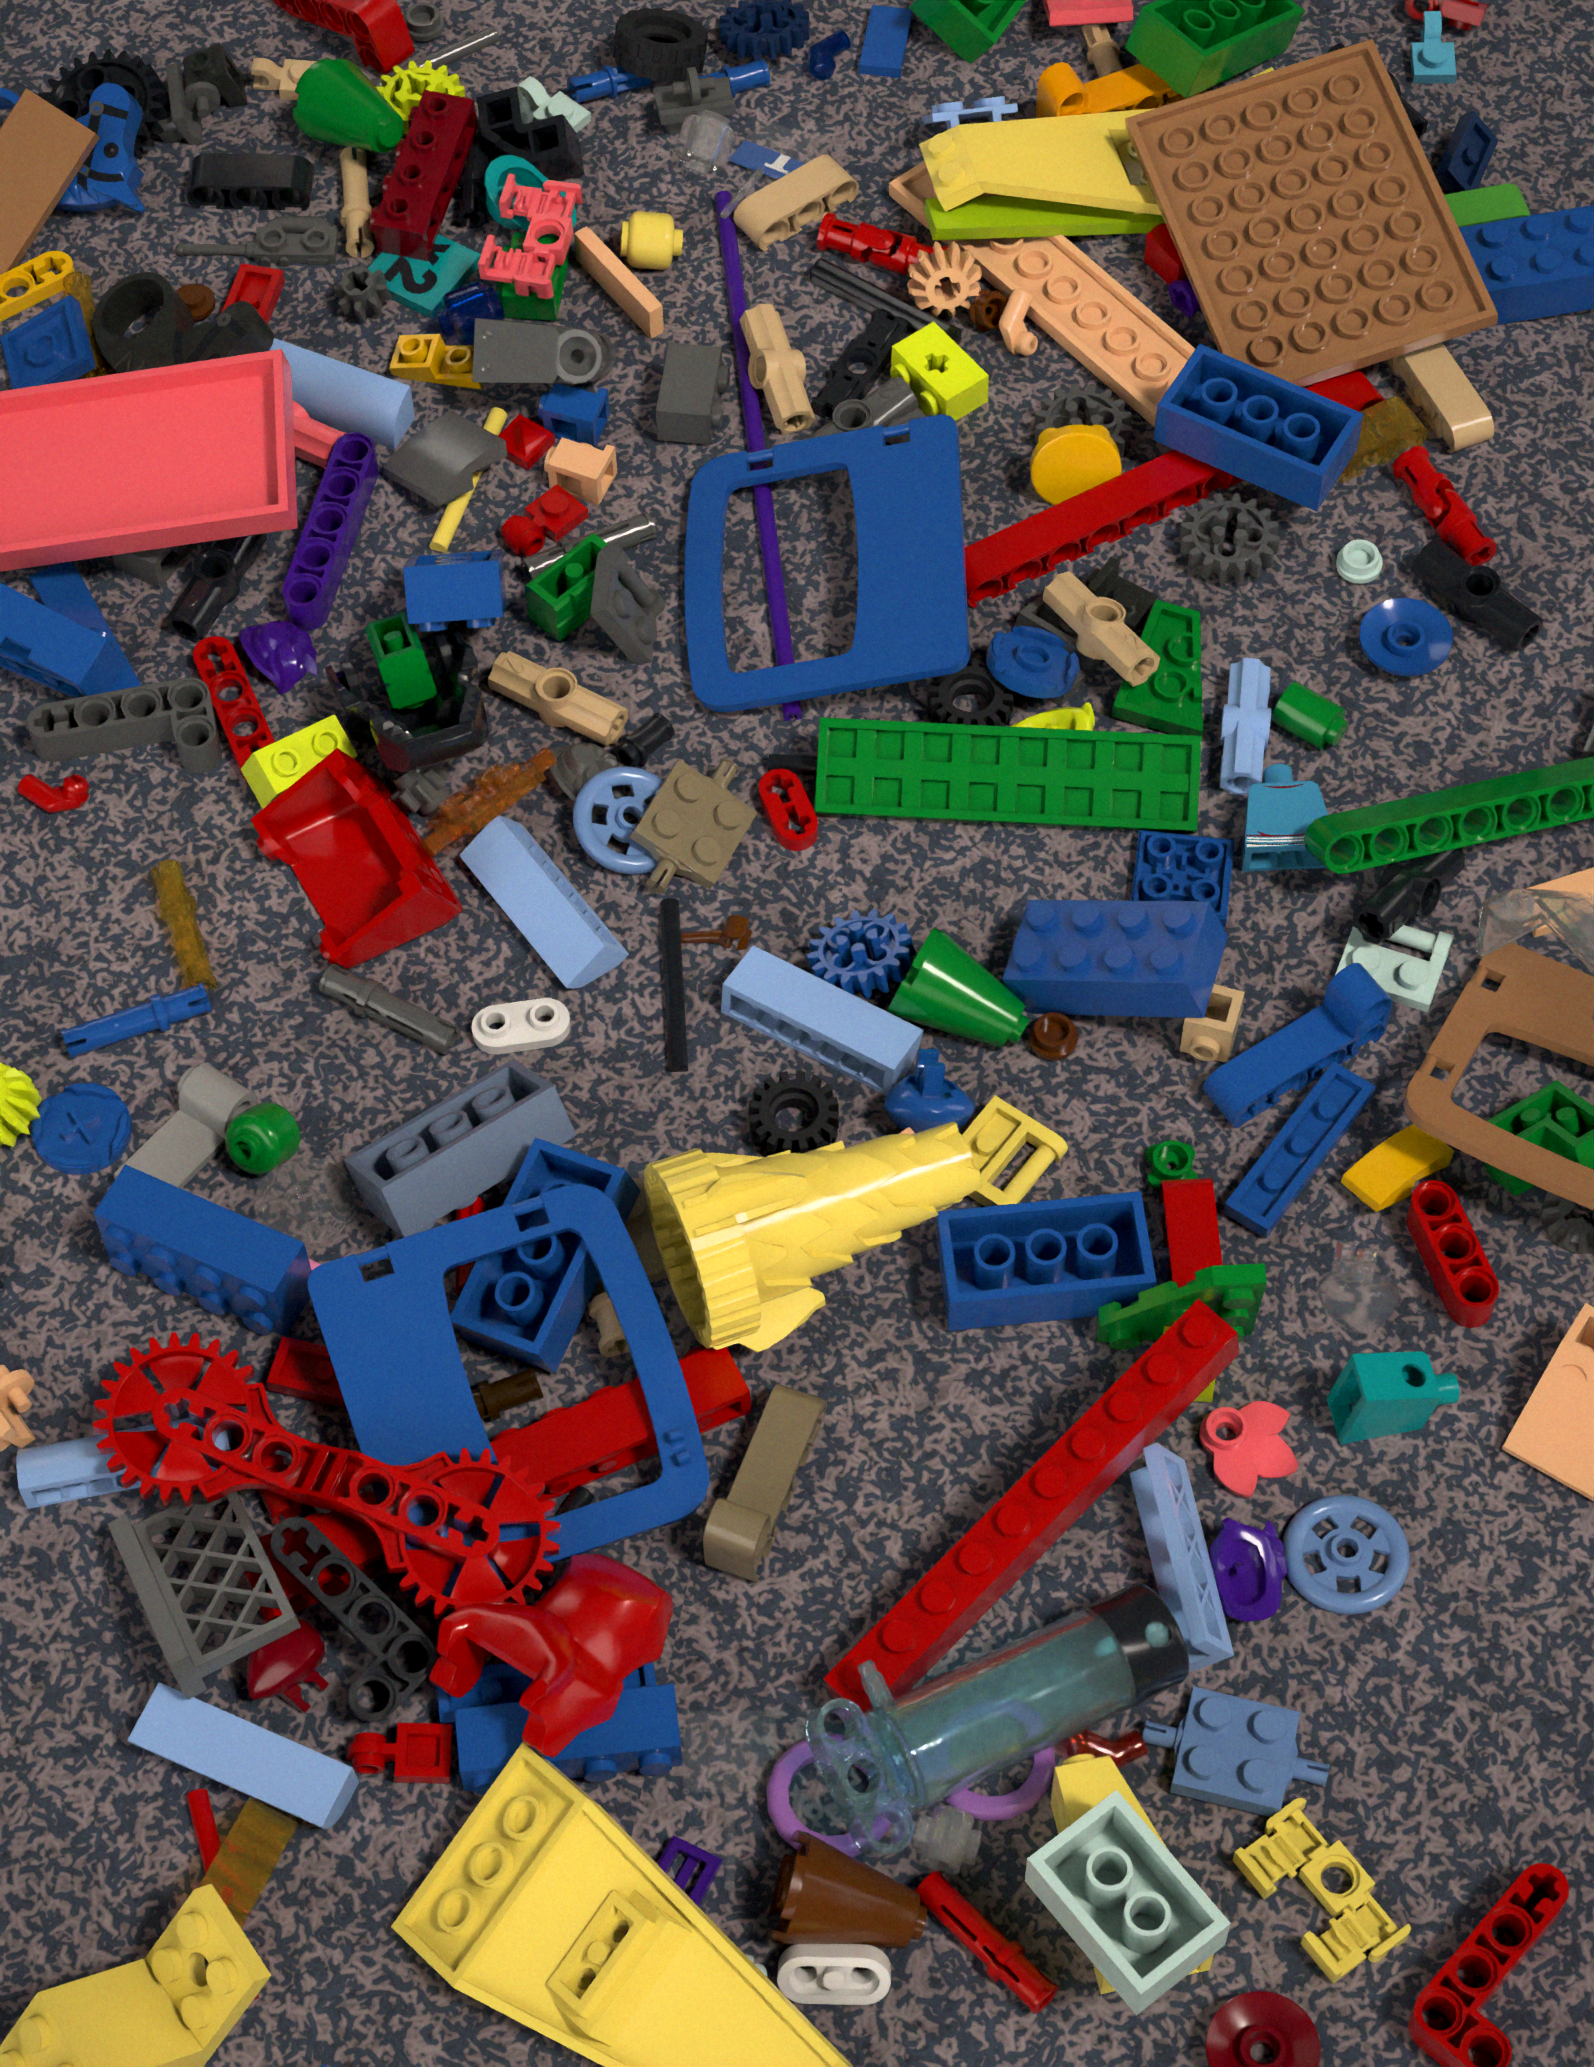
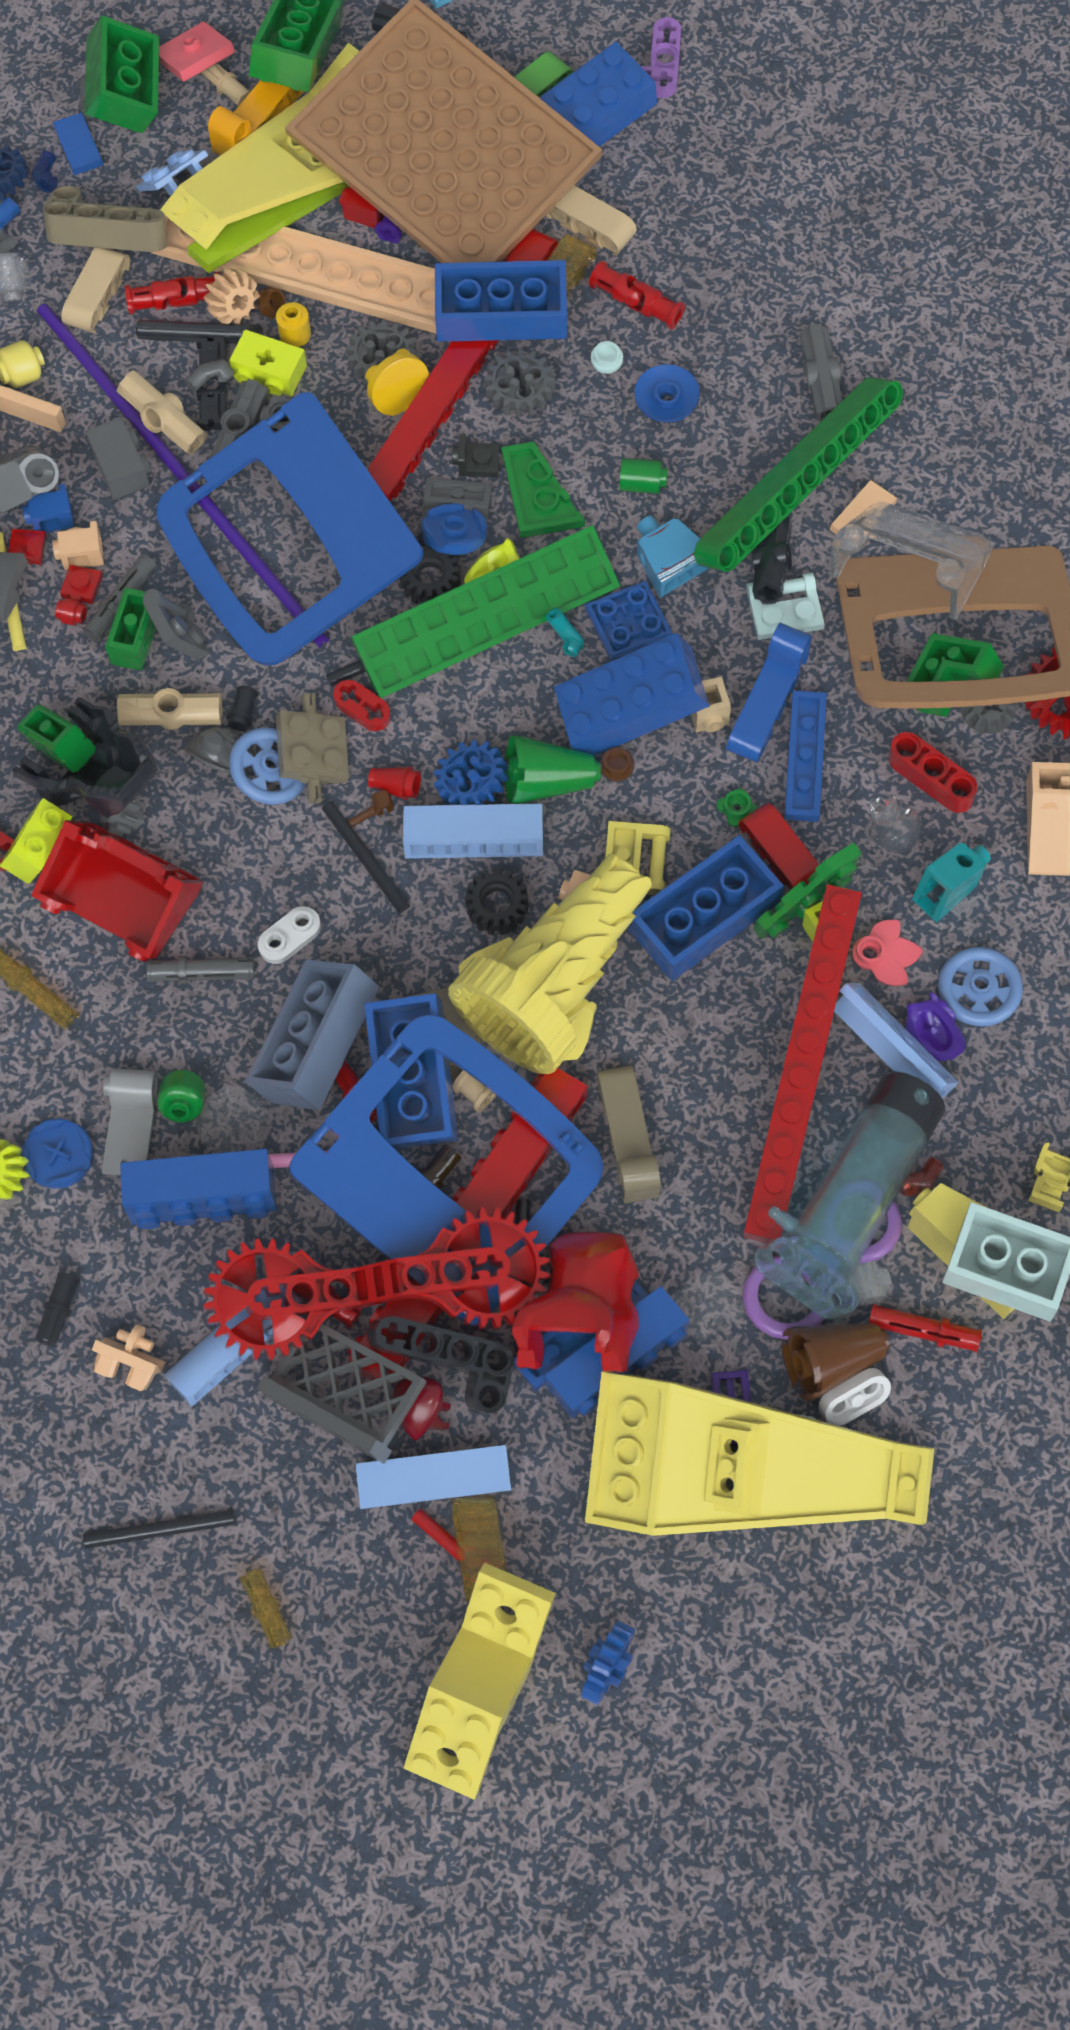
camera: 30 degrees left, 10 degrees up
(137, 1020) = (46, 1063): blue pin -> none
(304, 1372) = (312, 1224): red plate -> none
(419, 1754) = (532, 1411): red plate -> none
(455, 589) = (63, 671): blue brick -> none
(494, 793) = (173, 801): clear orange plate -> none
(542, 903) = (250, 849): light blue brick -> none
(771, 152) = (55, 263): clear piece -> none
(771, 918) = (398, 781): none -> red cone
(818, 117) = (101, 225): none -> dark tan beam
(859, 347) = (207, 371): none -> dark grey arm
(927, 1097) = (572, 846): blue piece -> none
(997, 344) = (293, 324): none -> yellow brick
(1013, 327) = (289, 295): light nougat arm -> none
(1094, 848) = (573, 640): none -> teal arm
(1101, 628) = (483, 485): tan piece -> none
(1235, 1752) = (992, 1138): medium blue plate -> none
(1245, 725) = (607, 502): light blue piece -> none
(1394, 1167) = (868, 736): yellow slope -> none
(1466, 154) = (504, 43): dark blue plate -> none
(1477, 595) = (707, 348): black piece -> none

